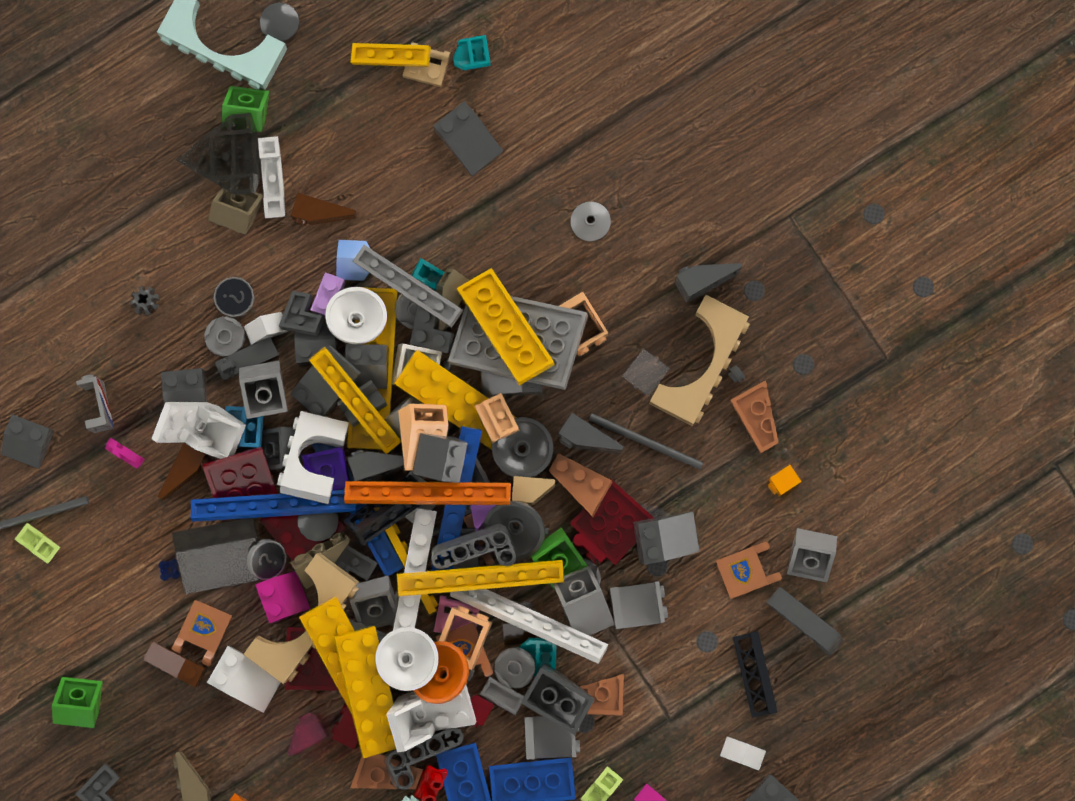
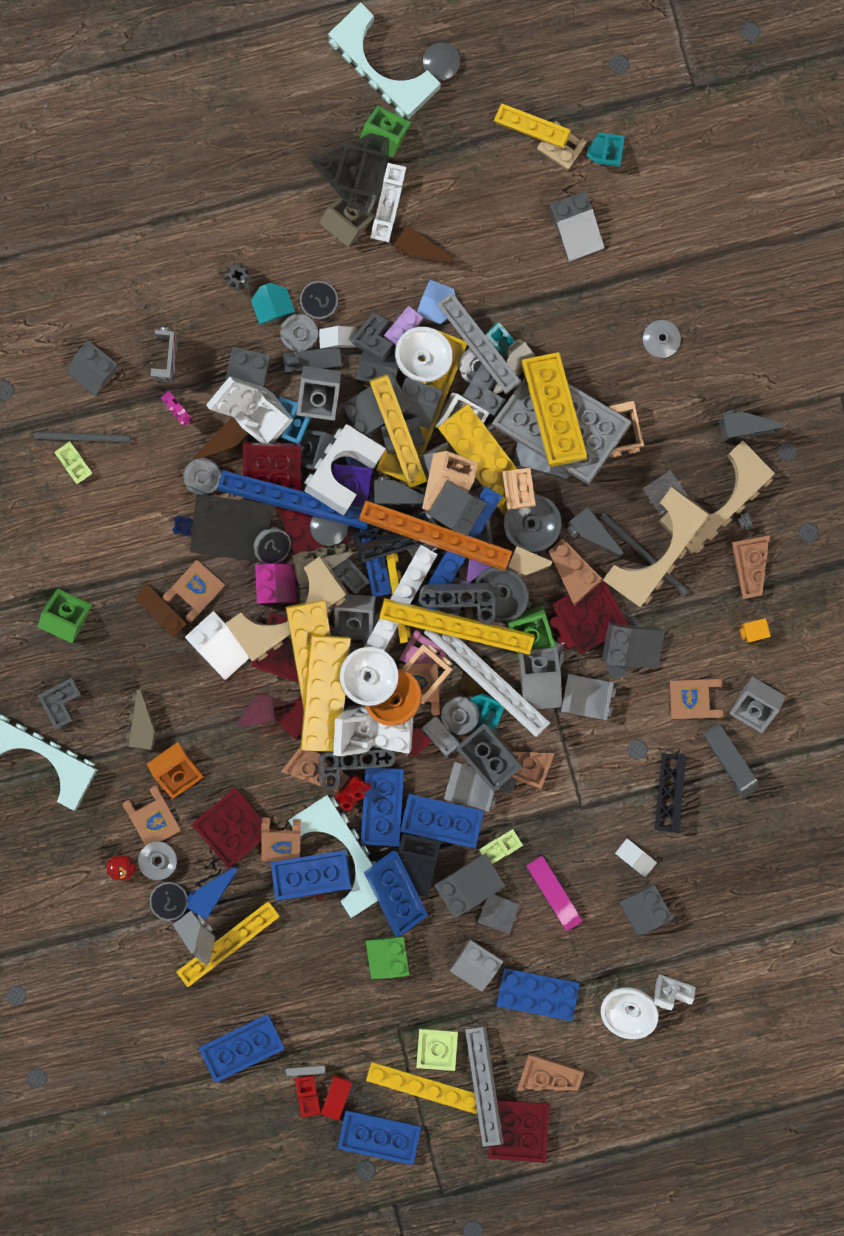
camera: 10 degrees right, 5 degrees up
(172, 513) = (202, 476): none -> light grey tile
(187, 316) = (271, 303): none -> teal slope
(651, 472) = (686, 520): none -> tan arch

